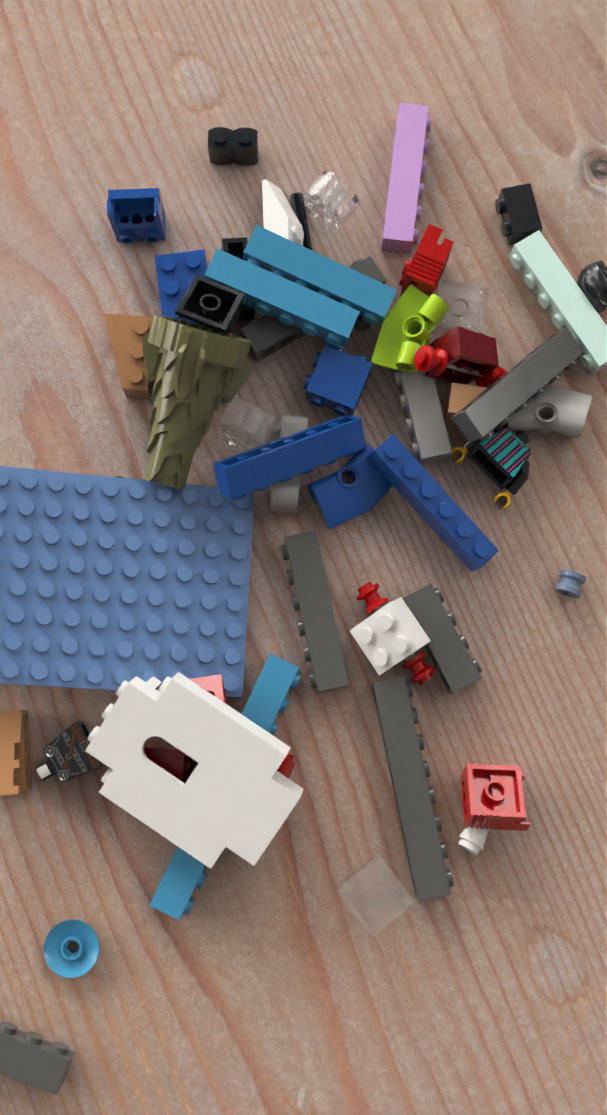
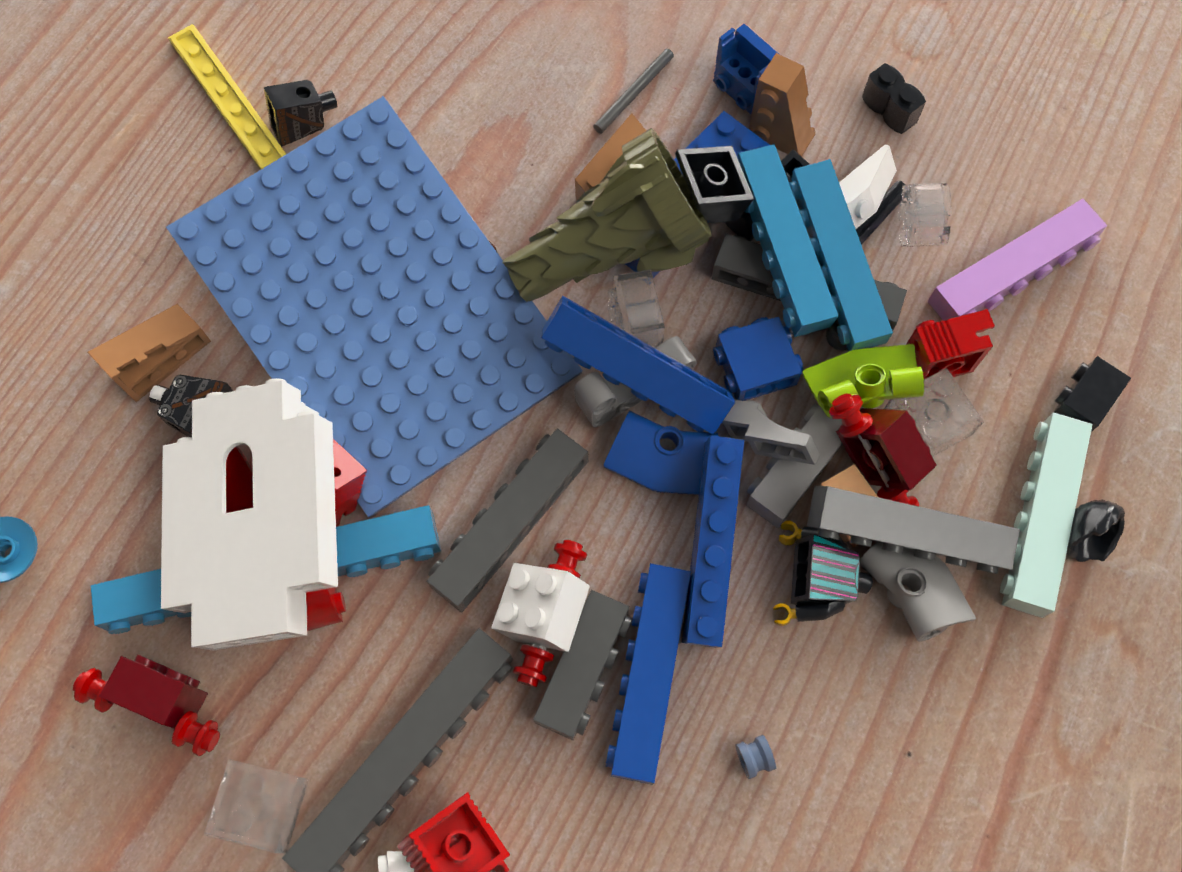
camera: 55 degrees right, 10 degrees down
(80, 297) = (633, 91): none -> dark grey bar
(186, 219) = (781, 107): none -> medium nougat wedge
(257, 912) = (154, 694): none -> dark red brick
(394, 419) = (767, 438): none -> light grey slope
(477, 604) = (650, 675): none -> blue brick

